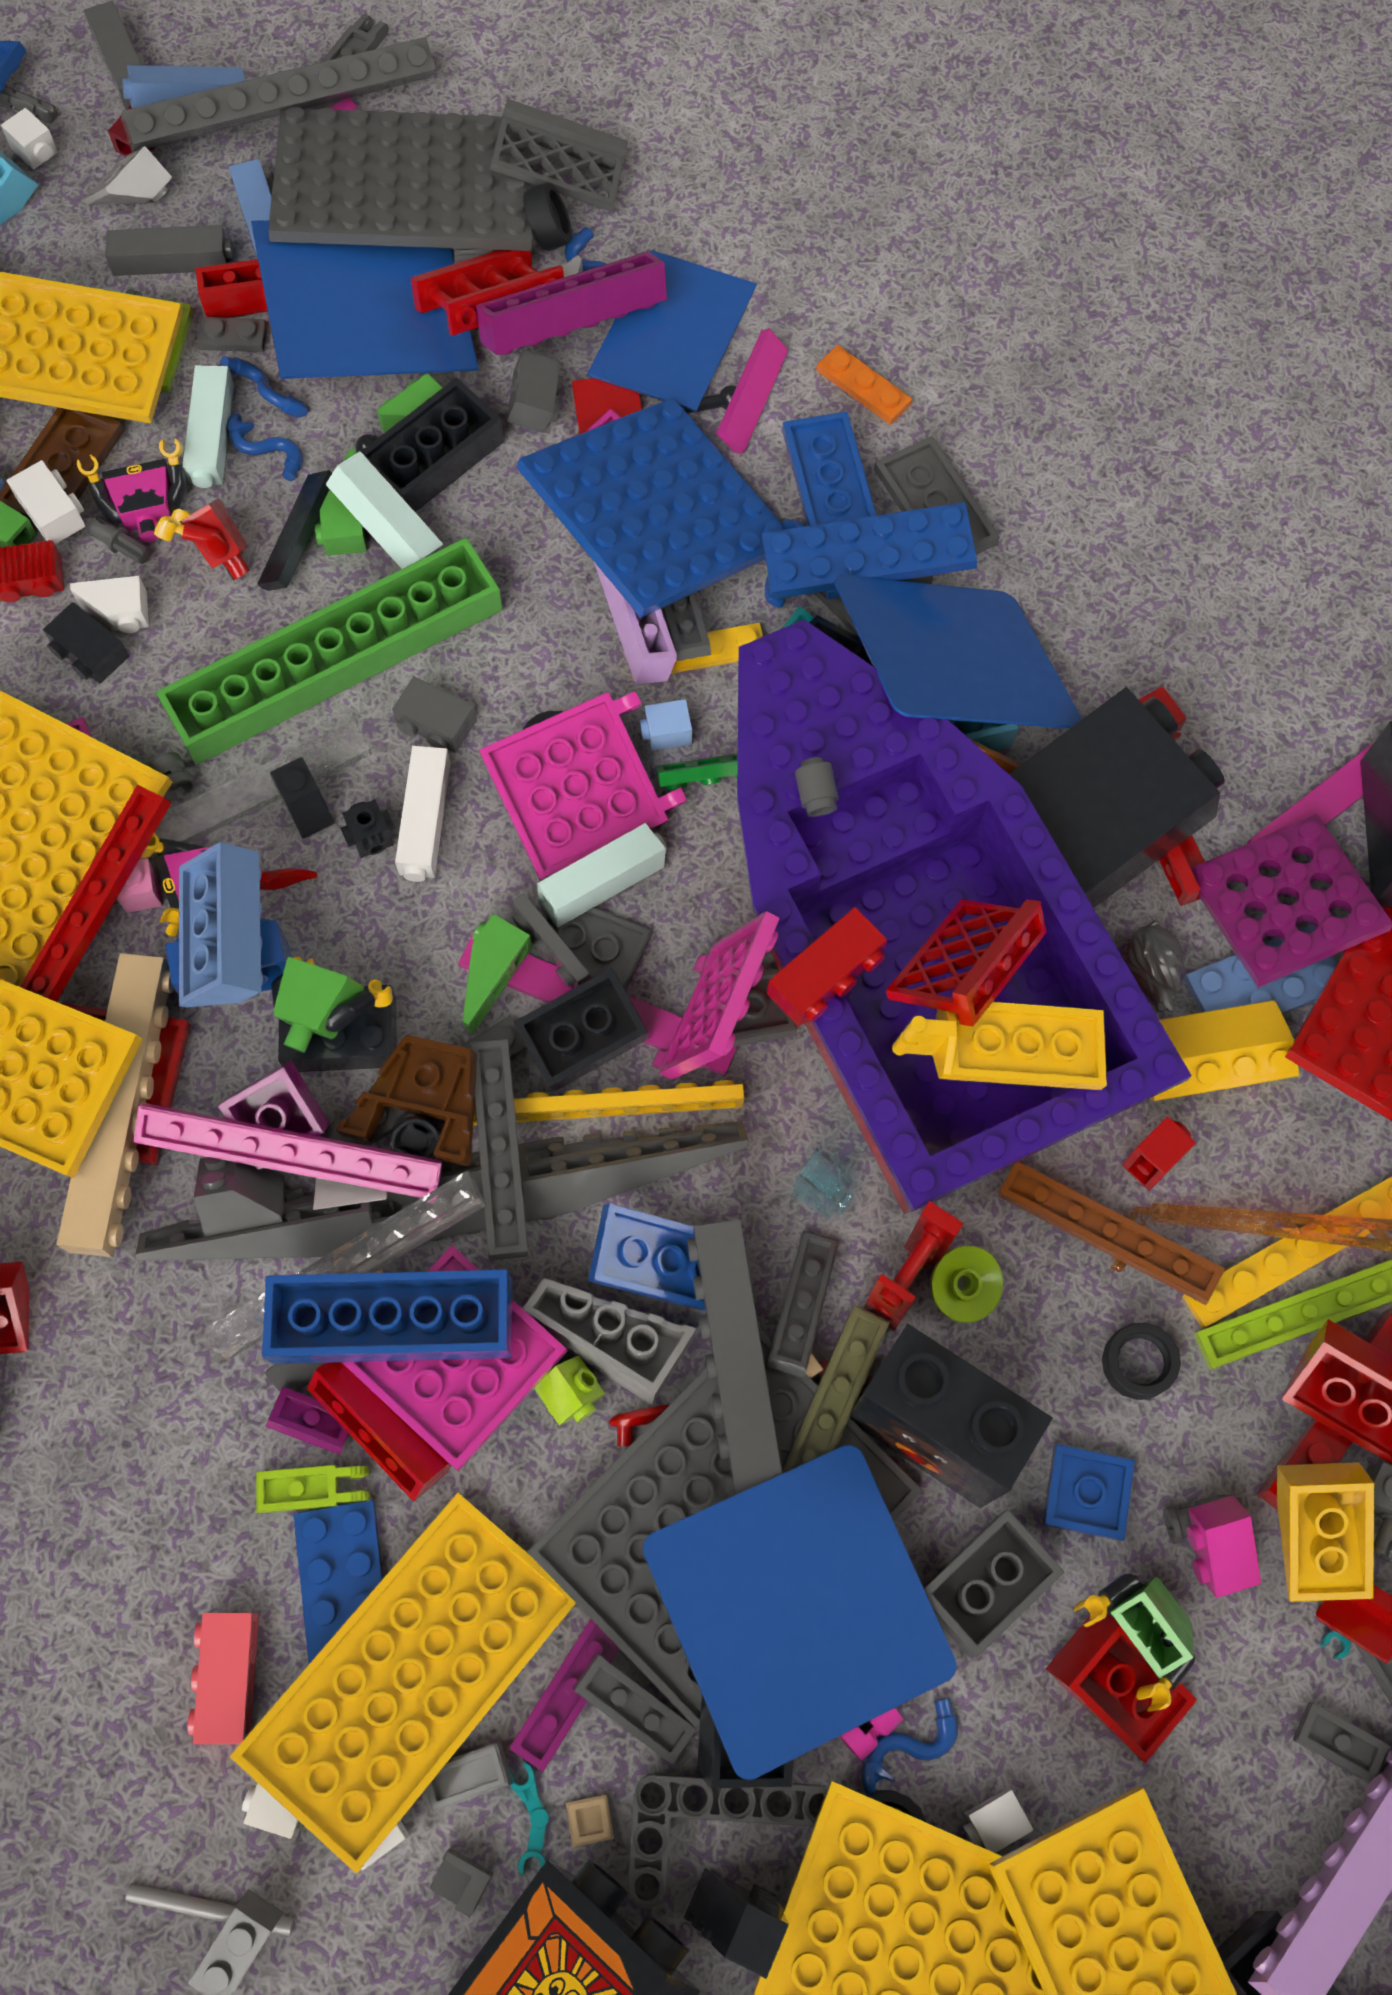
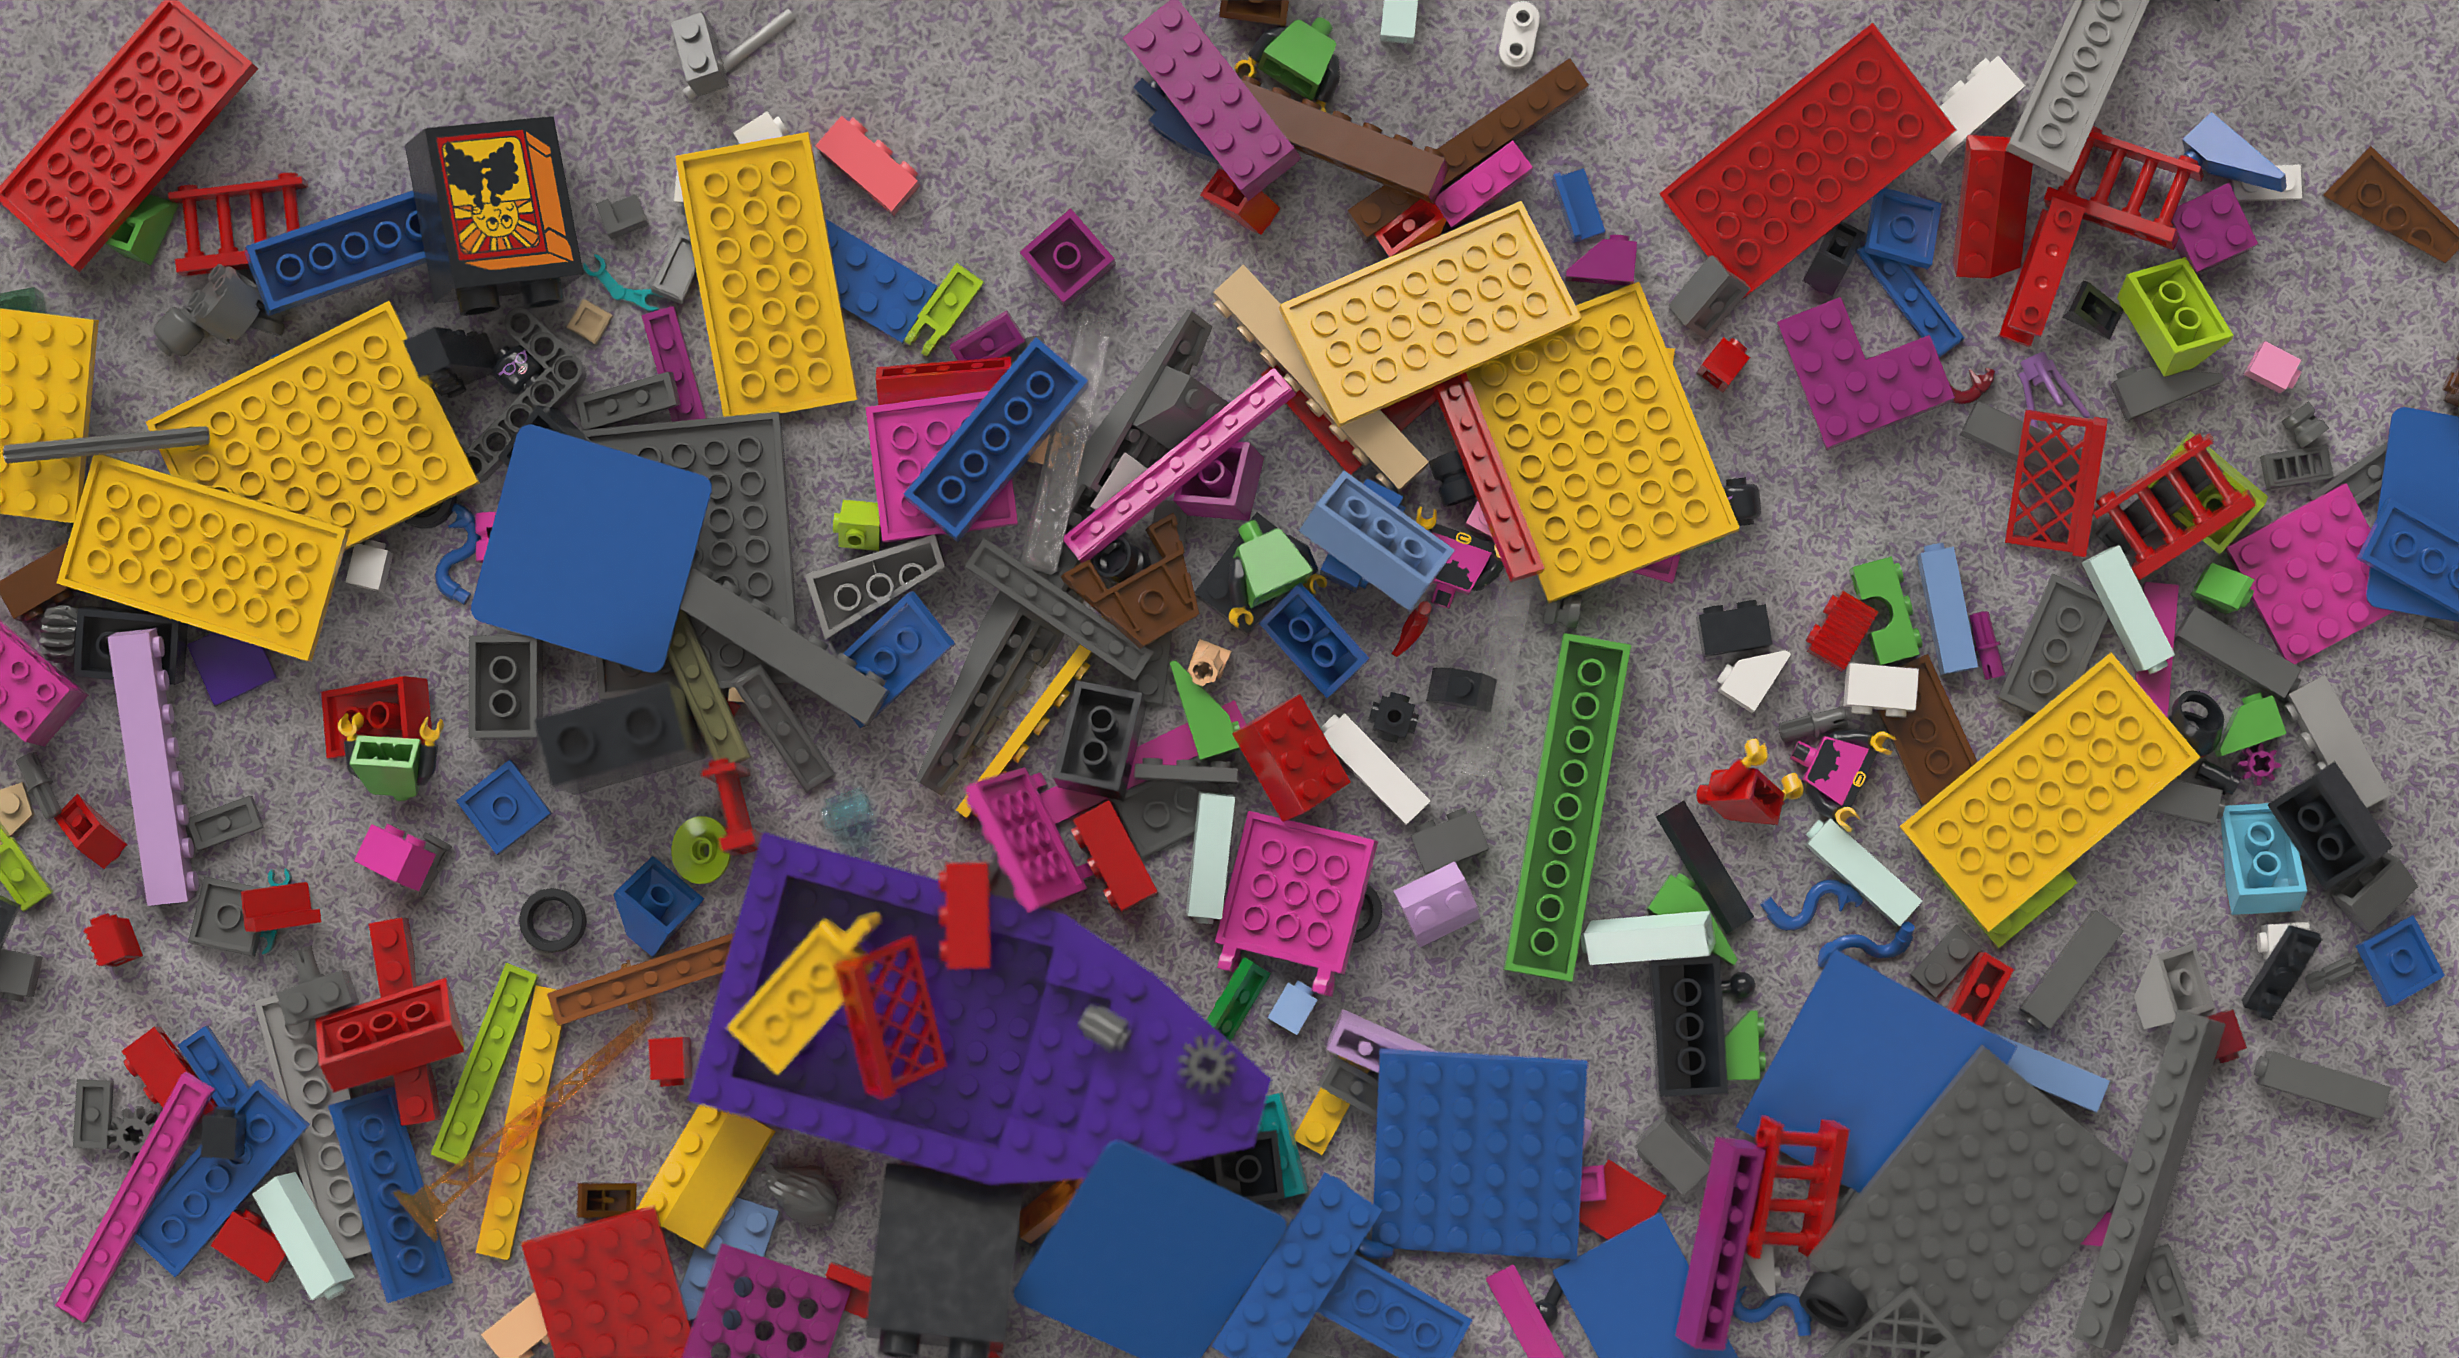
camera: 140 degrees right, 15 degrees up
(52, 115) = (2281, 971): none -> black plate
(122, 933) = (1455, 481): none -> black wheel
(160, 83) = (2226, 1106): medium blue brick -> none
(173, 1412) = (1067, 258): none -> magenta brick
(351, 923) = (1314, 640): none -> blue slope
(443, 999) = (1207, 662): none -> light nougat piece
(467, 870) = (1291, 758): none -> red brick
(489, 679) = (1437, 904): none -> lavender slope
(634, 1418) = (810, 550): red bar -> none
(669, 941) = (1113, 857): none -> red brick
(694, 1849) = (516, 369): none -> black head
(767, 700) = (1202, 1075): none -> dark grey gear
(1047, 1281) = (655, 905): none -> blue slope
(1212, 1874) = (230, 666): none -> dark purple tile
(1313, 1114) = (605, 1199): none -> reddish brown slope
(1326, 1530) = (346, 923): yellow slope -> none

